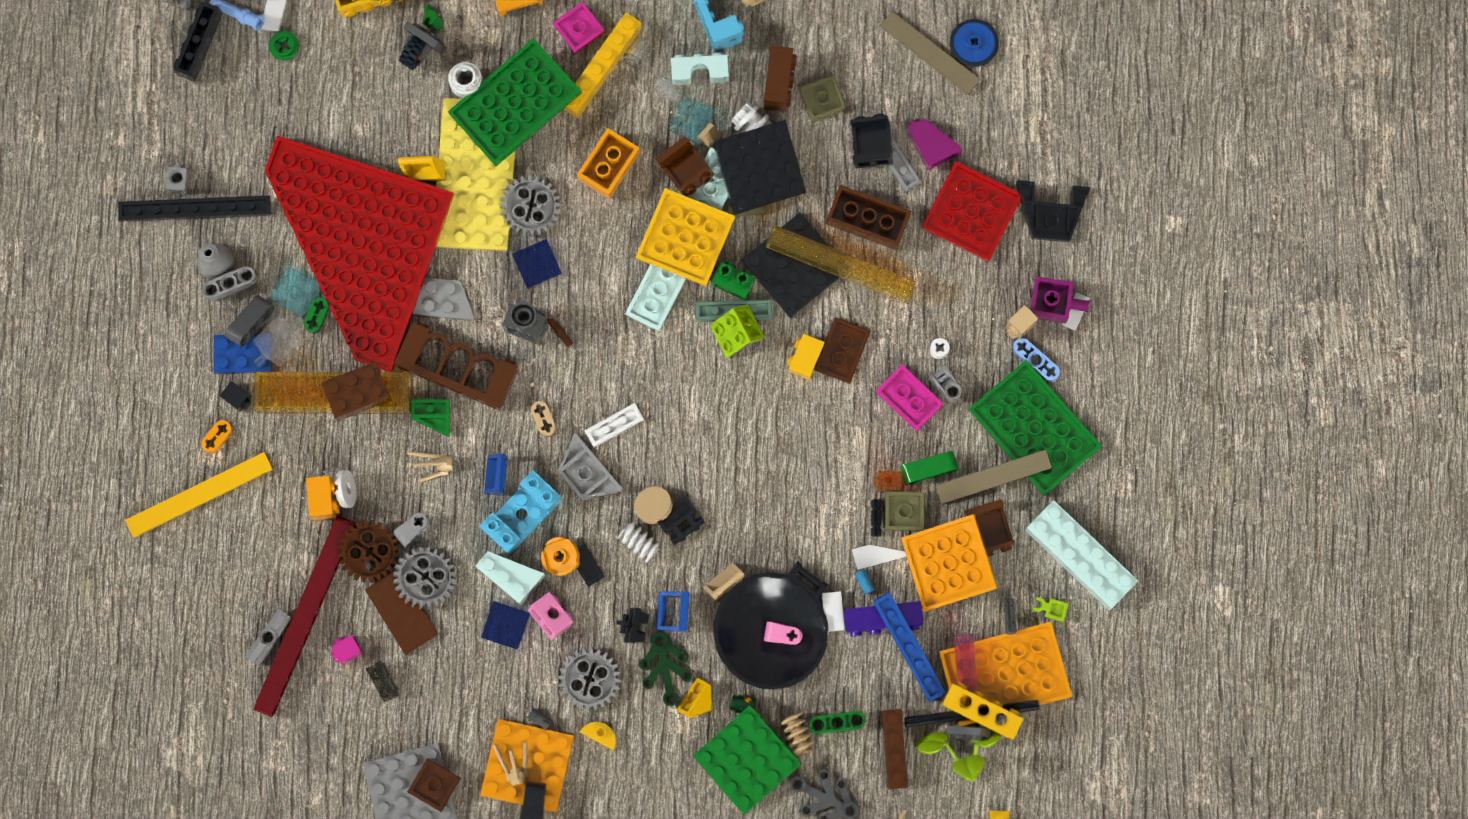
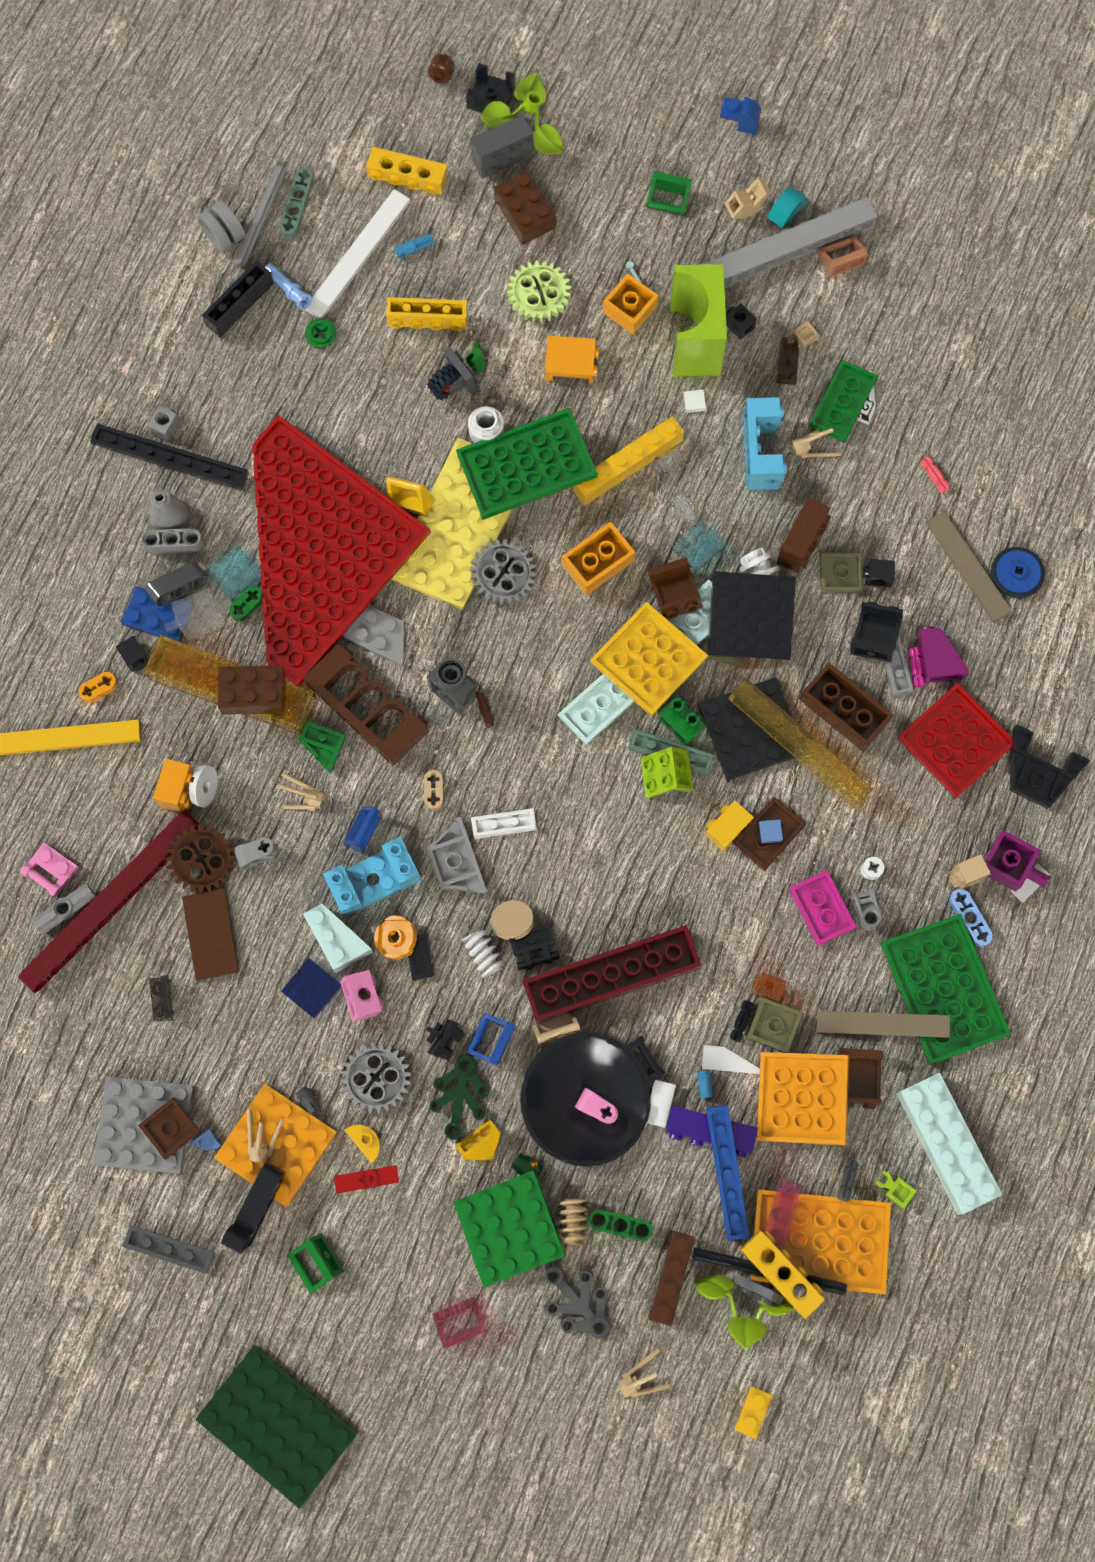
camera: 20 degrees right, 5 degrees down
(244, 603) = (53, 863): none -> bright pink plate
(345, 649) = (137, 951): dark pink brick -> none
(413, 591) = (229, 916): light grey gear -> none
(468, 784) = (207, 1141): none -> medium blue tile
(536, 263) = (487, 632): clear blue tile -> none
(578, 27) = (619, 417): dark pink plate -> none
(613, 765) = (366, 1179): none -> red piece
(709, 134) = (710, 565): tan tile -> none
(715, 65) = (712, 491): light aqua arch -> none
(753, 519) = (611, 974): none -> dark red brick
(842, 348) = (770, 831): none -> medium blue tile
(855, 87) = (879, 572): none -> black brick
(916, 159) = (916, 667): none -> dark pink axle
(929, 467) = (817, 989): green beam -> none

